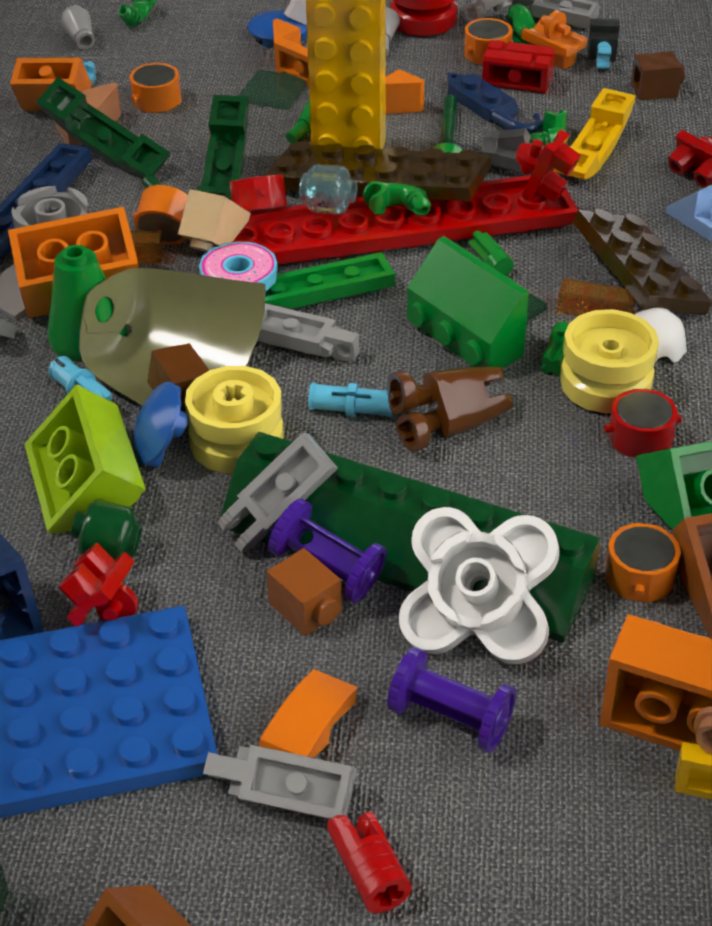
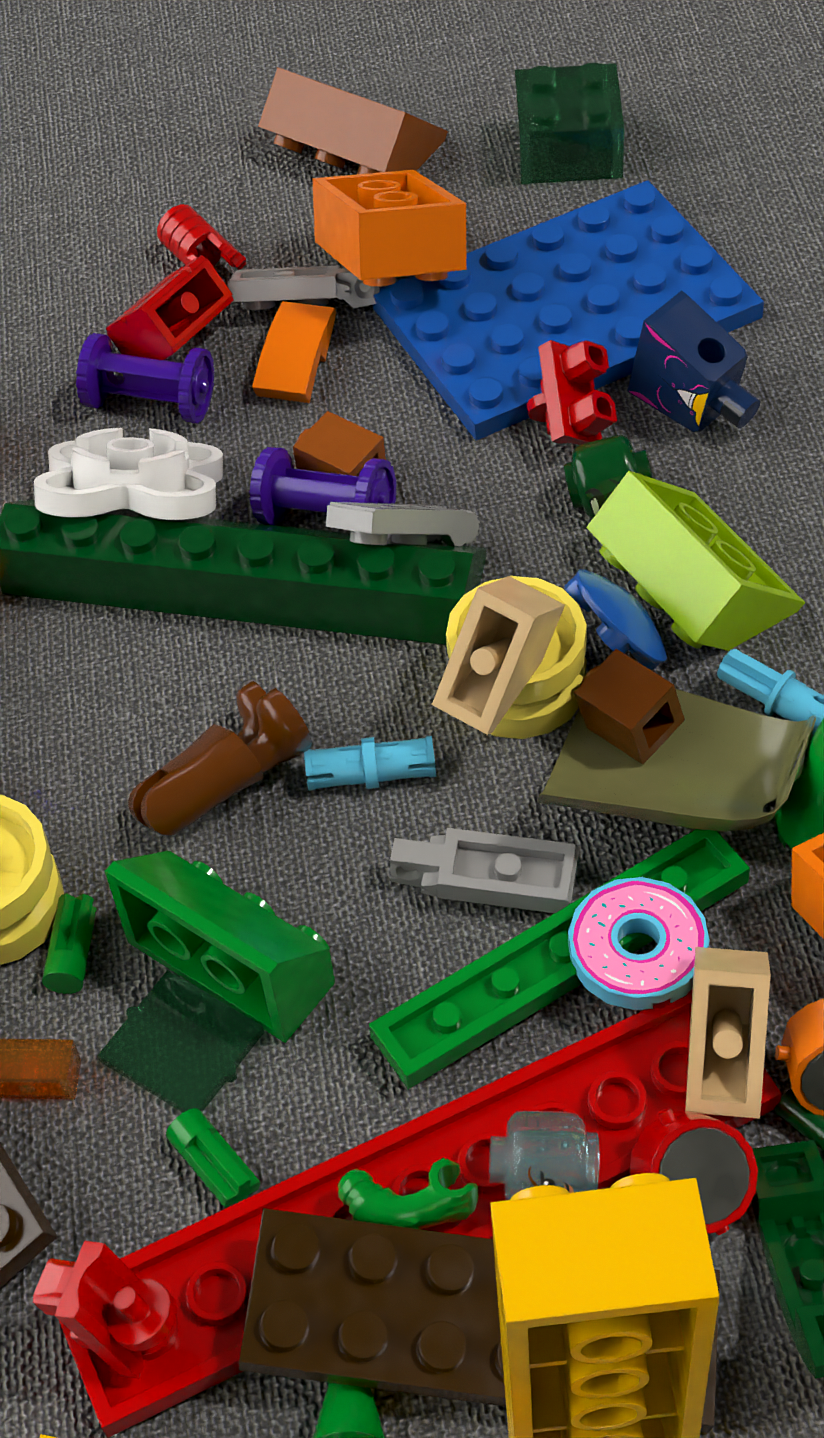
camera: 170 degrees right, 10 degrees up
(180, 760) = (390, 226): none -> orange brick
(249, 354) = (496, 652): none -> tan slope
(418, 745) = (171, 312): none -> red brick

